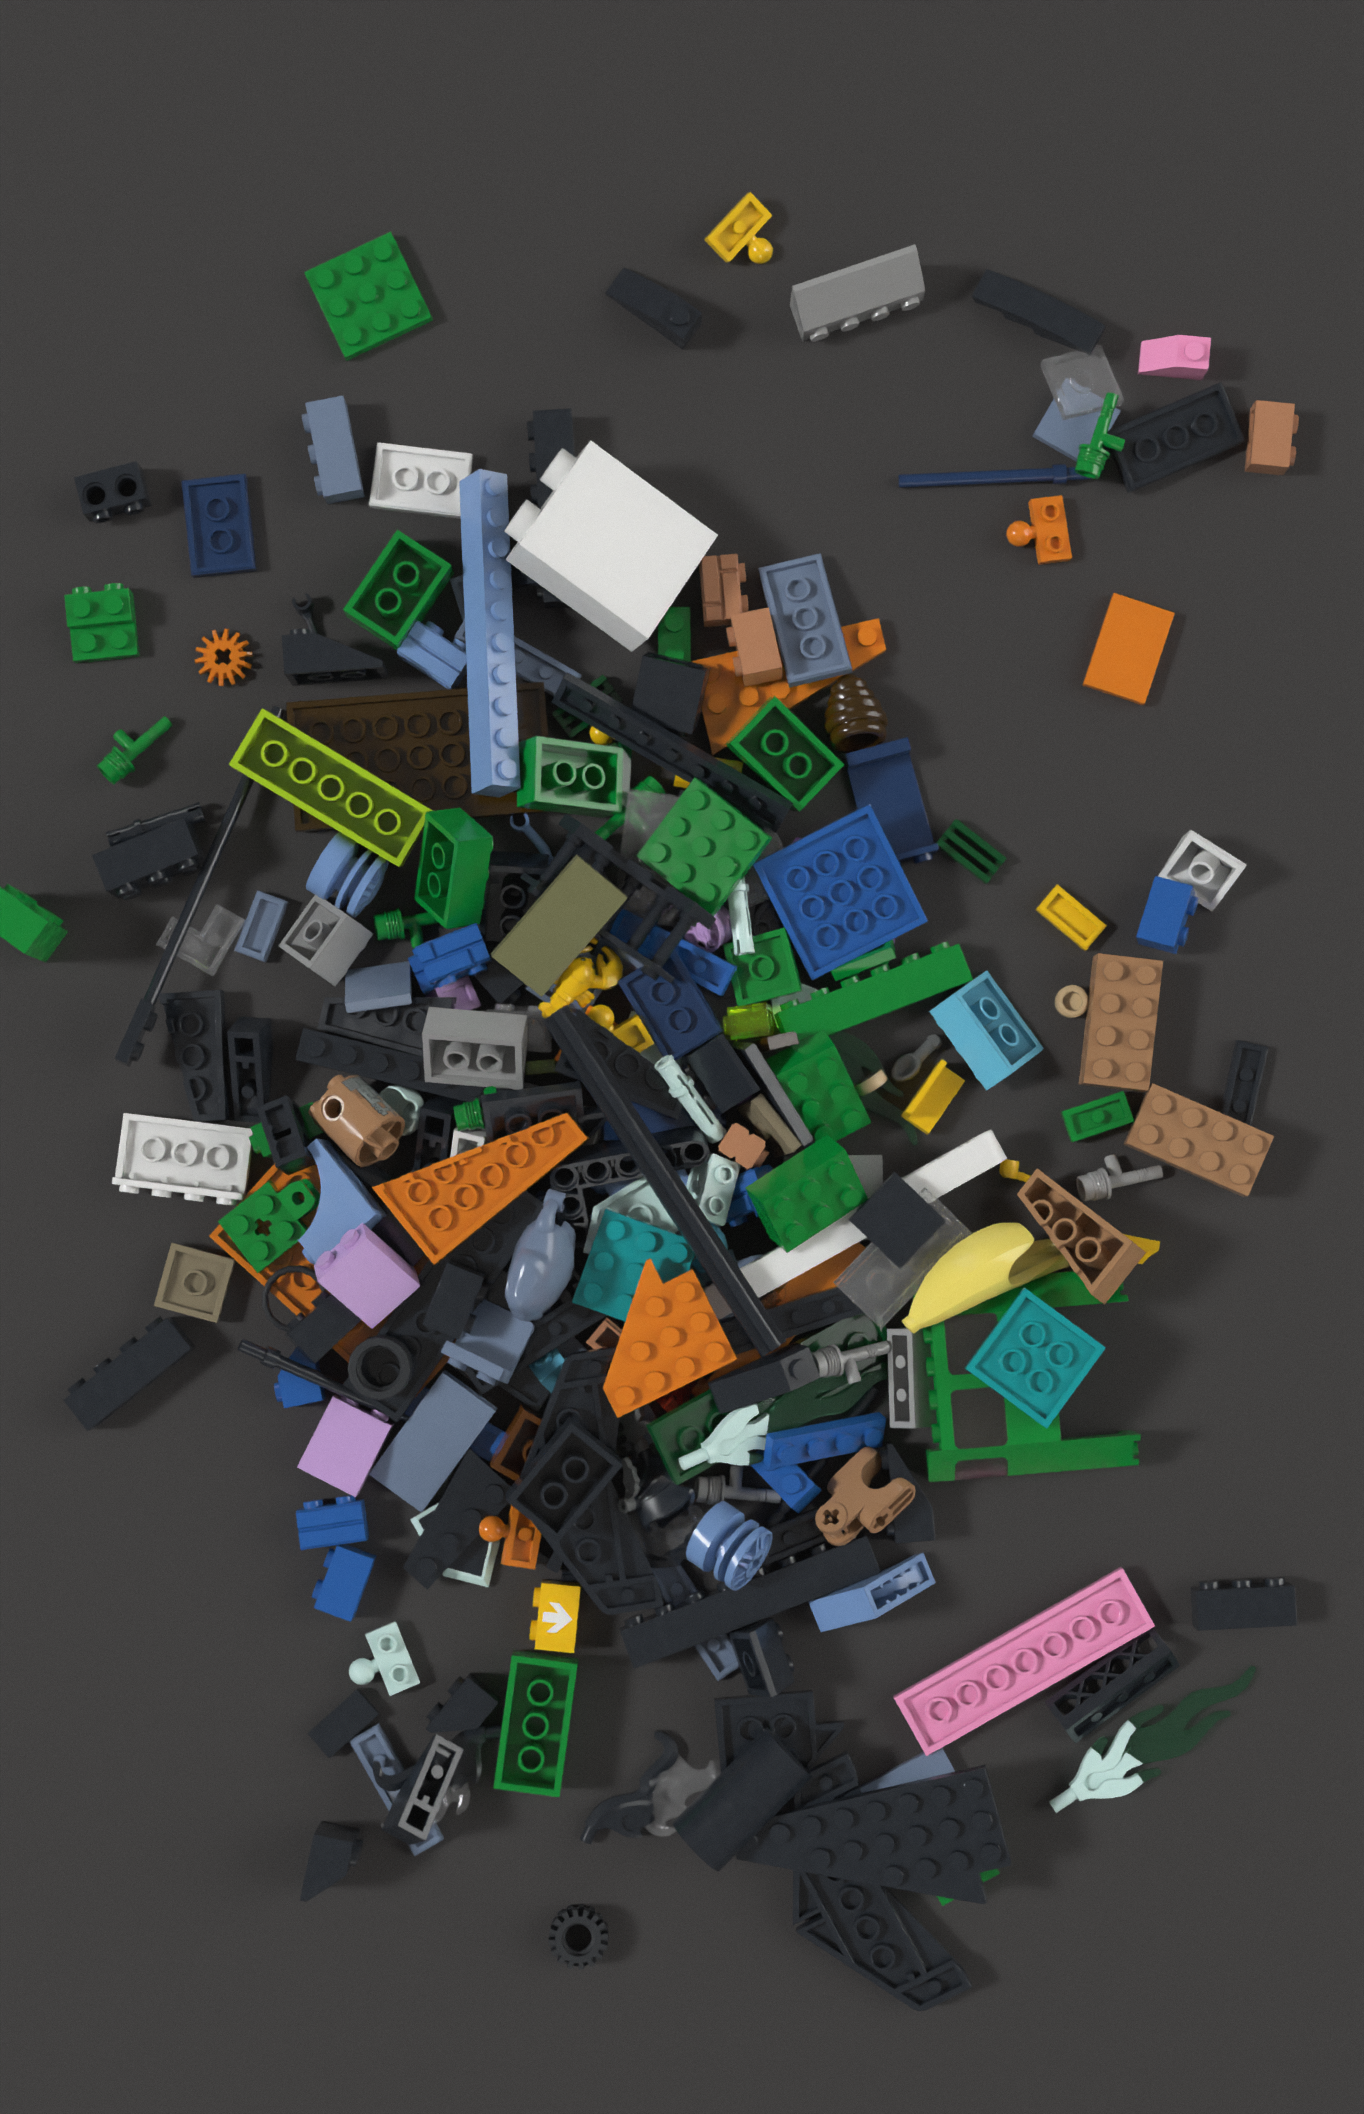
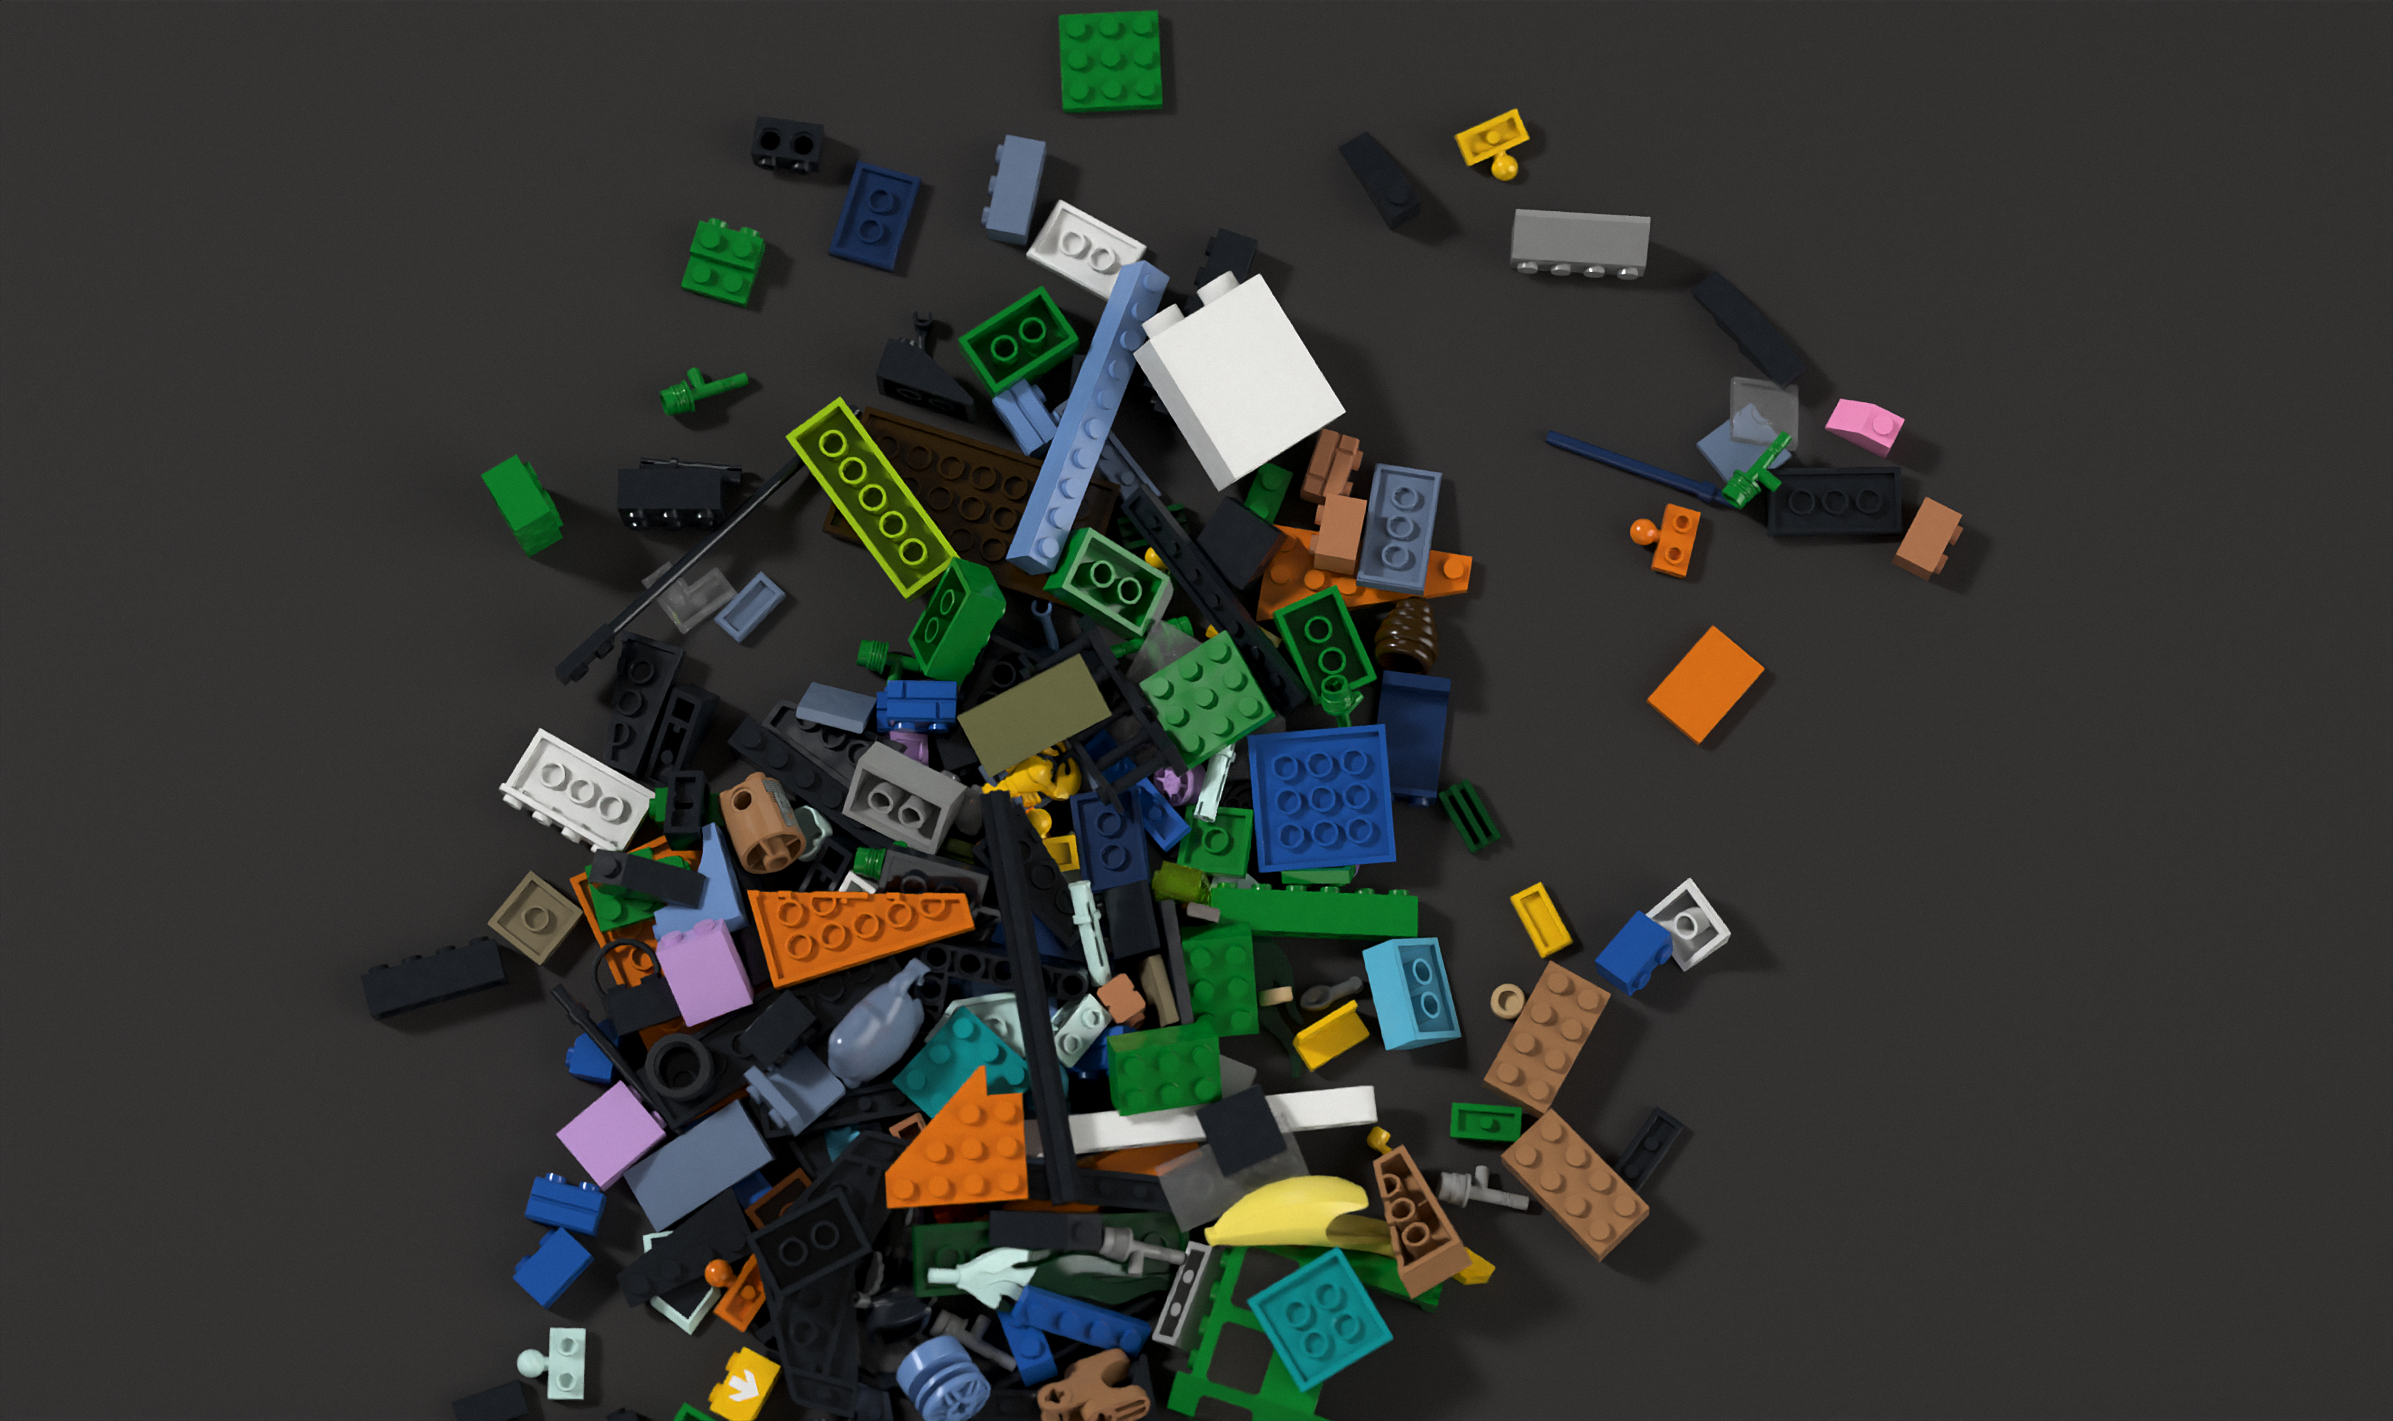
camera: 25 degrees right, 10 degrees down
(236, 656) = (819, 352): orange gear -> none
(278, 1215) = (645, 879): none -> black slope
(325, 940) = (806, 644): light grey slope -> none
(352, 877) = (854, 588): medium blue wheel -> none
(820, 798) = (1339, 699): none -> green piece

